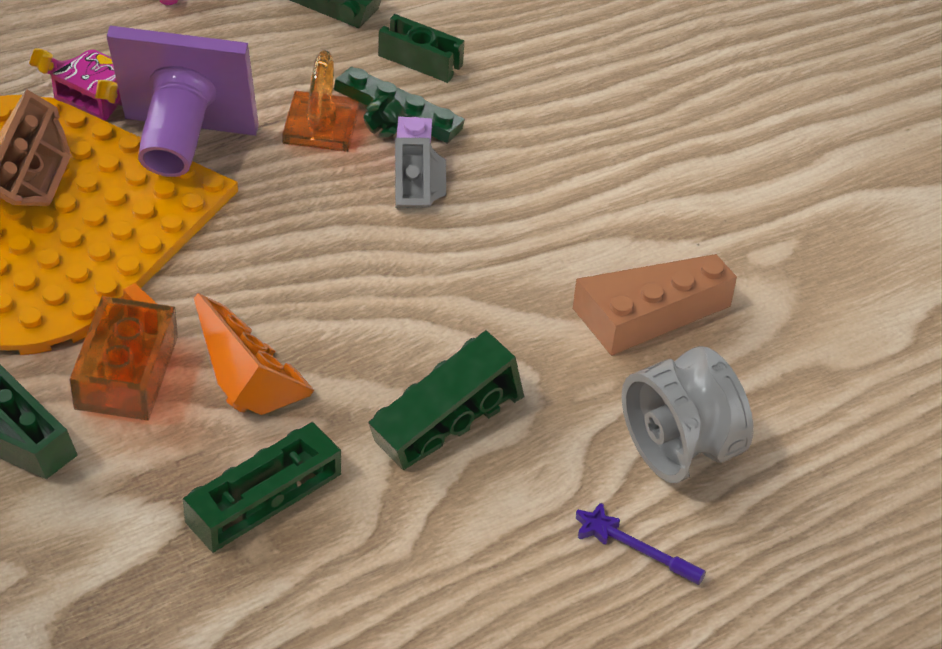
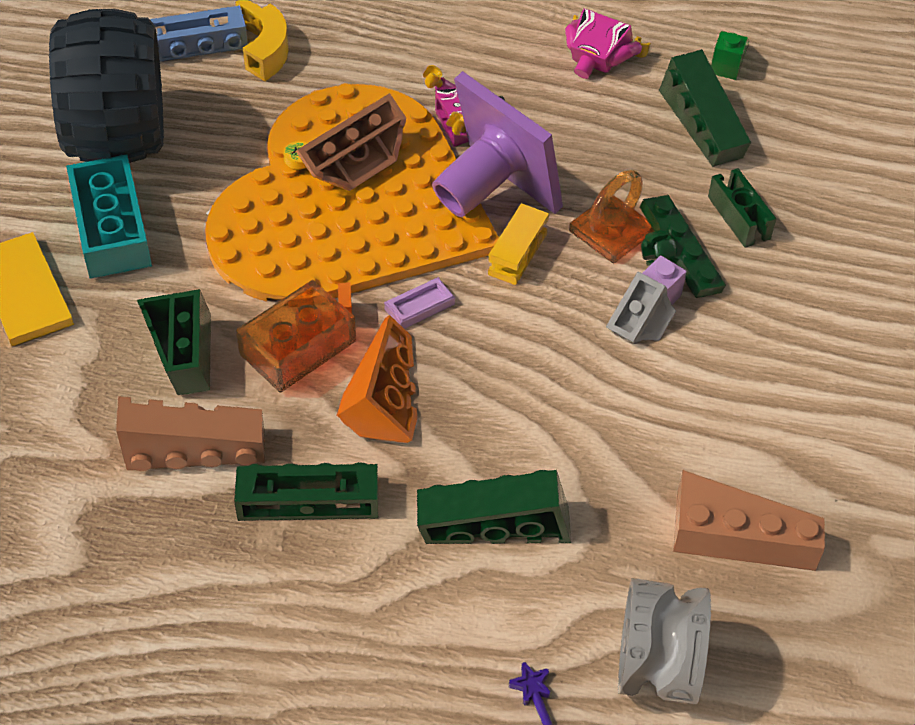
camera: 40 degrees right, 5 degrees up
(102, 503) = (188, 436): none -> nougat wedge
(206, 271) = (420, 303): none -> lavender tile
(254, 174) = (518, 244): none -> yellow piece

